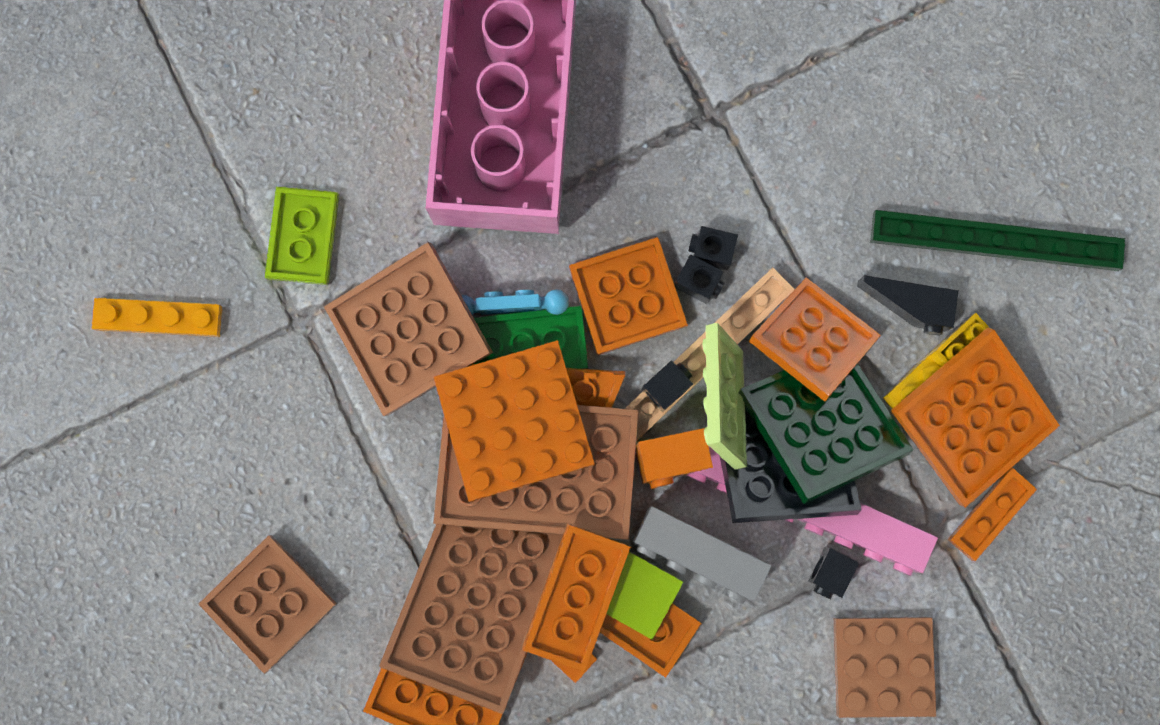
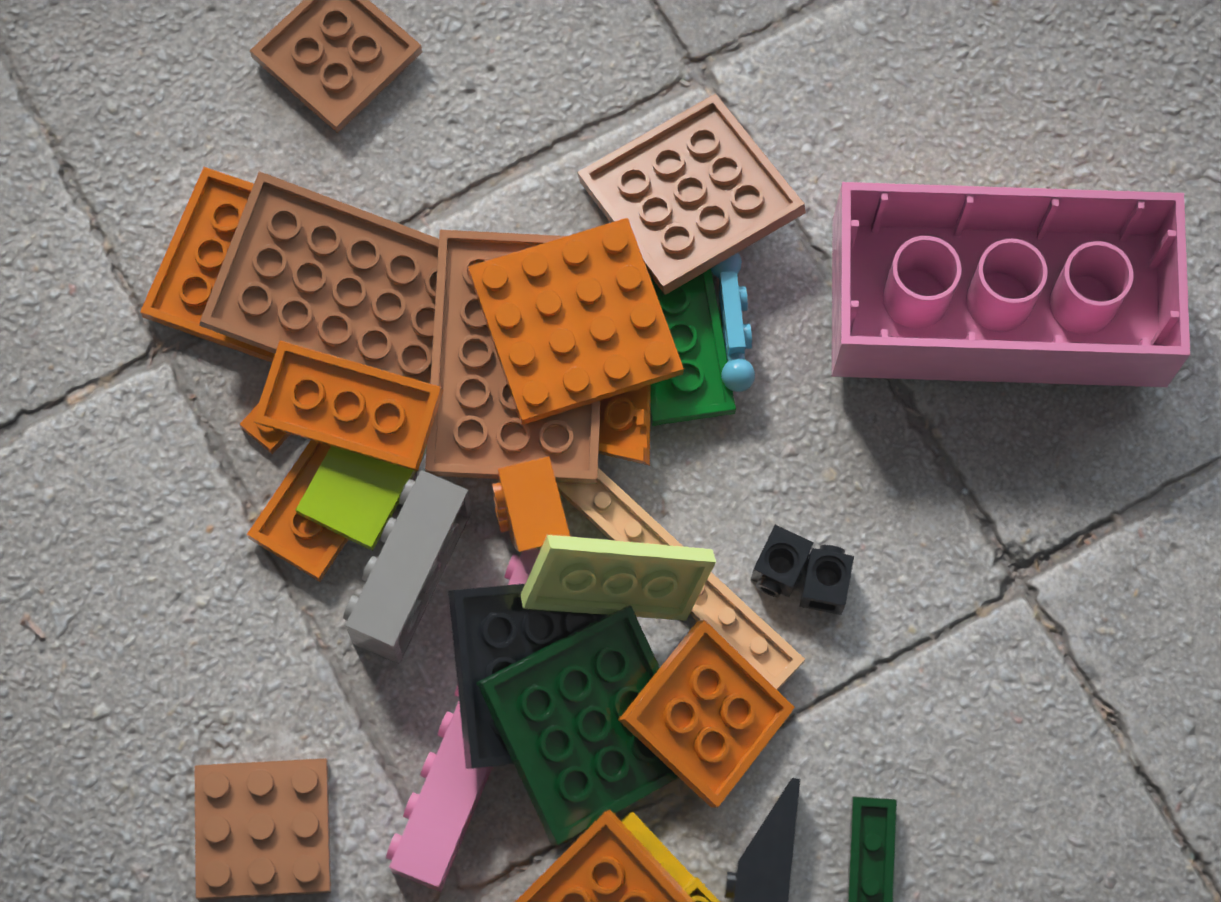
camera: 85 degrees right, 10 degrees down
(302, 236) = (808, 66): lime tile -> none
(628, 296) = (753, 471): orange plate -> none
(668, 385) = (631, 515): black brick -> none
(832, 573) = (387, 751): black brick -> none

